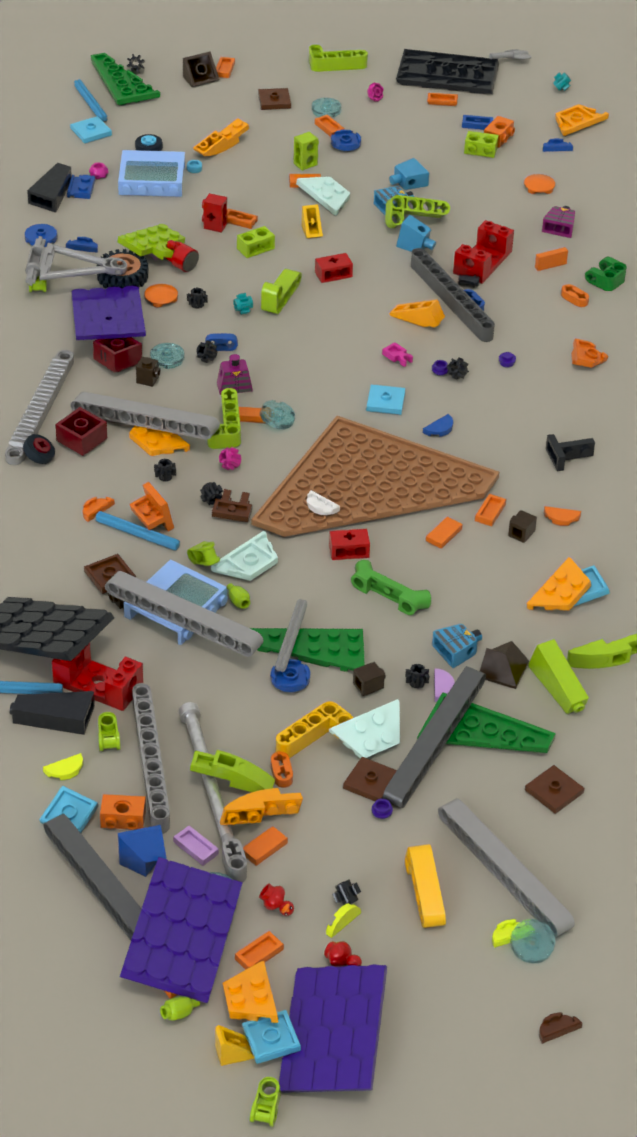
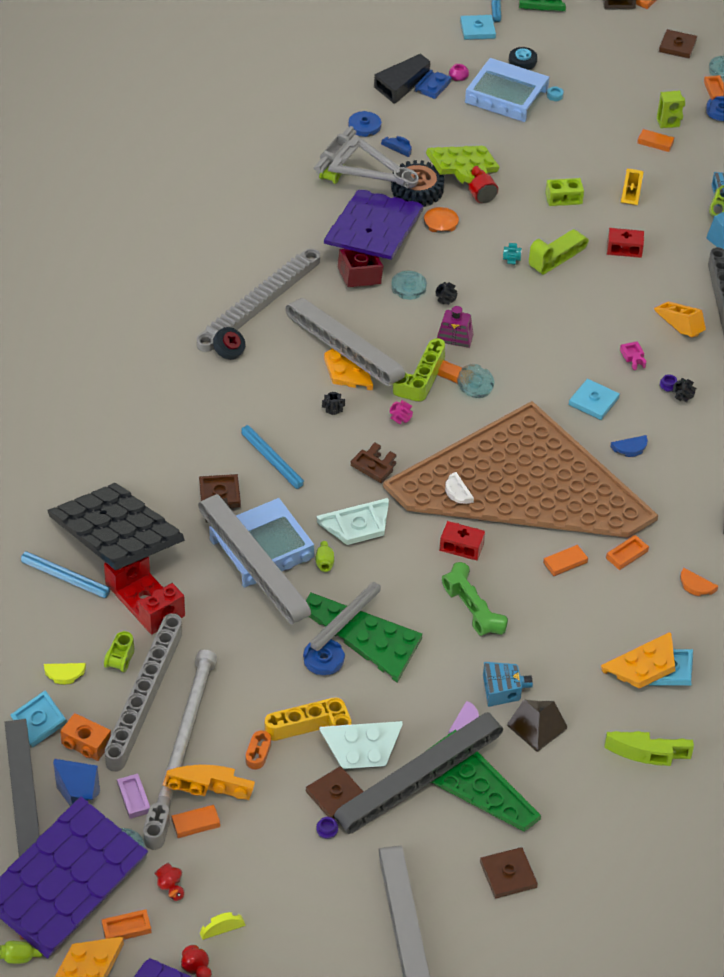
camera: 25 degrees right, 5 degrees up
(54, 711) = (87, 613): black slope -> none
(81, 431) = (277, 338): dark red brick -> none
(94, 505) = (249, 417): orange tile -> none
(147, 371) = (377, 296): dark brown brick -> none
(152, 509) = (292, 441): orange bracket -> none
(197, 298) = (471, 233): black gear -> none
(203, 554) = (315, 502): lime piece -> none
(211, 492) = (360, 441): black gear -> none
(214, 212) = (540, 149): red brick -> none
(221, 141) = (592, 75): light orange slope -> none
(221, 341) = (467, 287): blue beam -> none
(237, 770) = (207, 734): lime slope -> none
(241, 218) = (568, 164): orange tile -> none
(325, 191) = (668, 159): light aqua wing -> none
(346, 892) = (238, 900): black gear -> none
(368, 678) = (394, 688): dark brown brick -> none
(417, 676) = (444, 702): black gear -> none
(421, 866) = (315, 924): yellow beam -> none
(522, 526) = (646, 581): dark brown brick -> none
(558, 677) = (580, 757): lime slope -> none

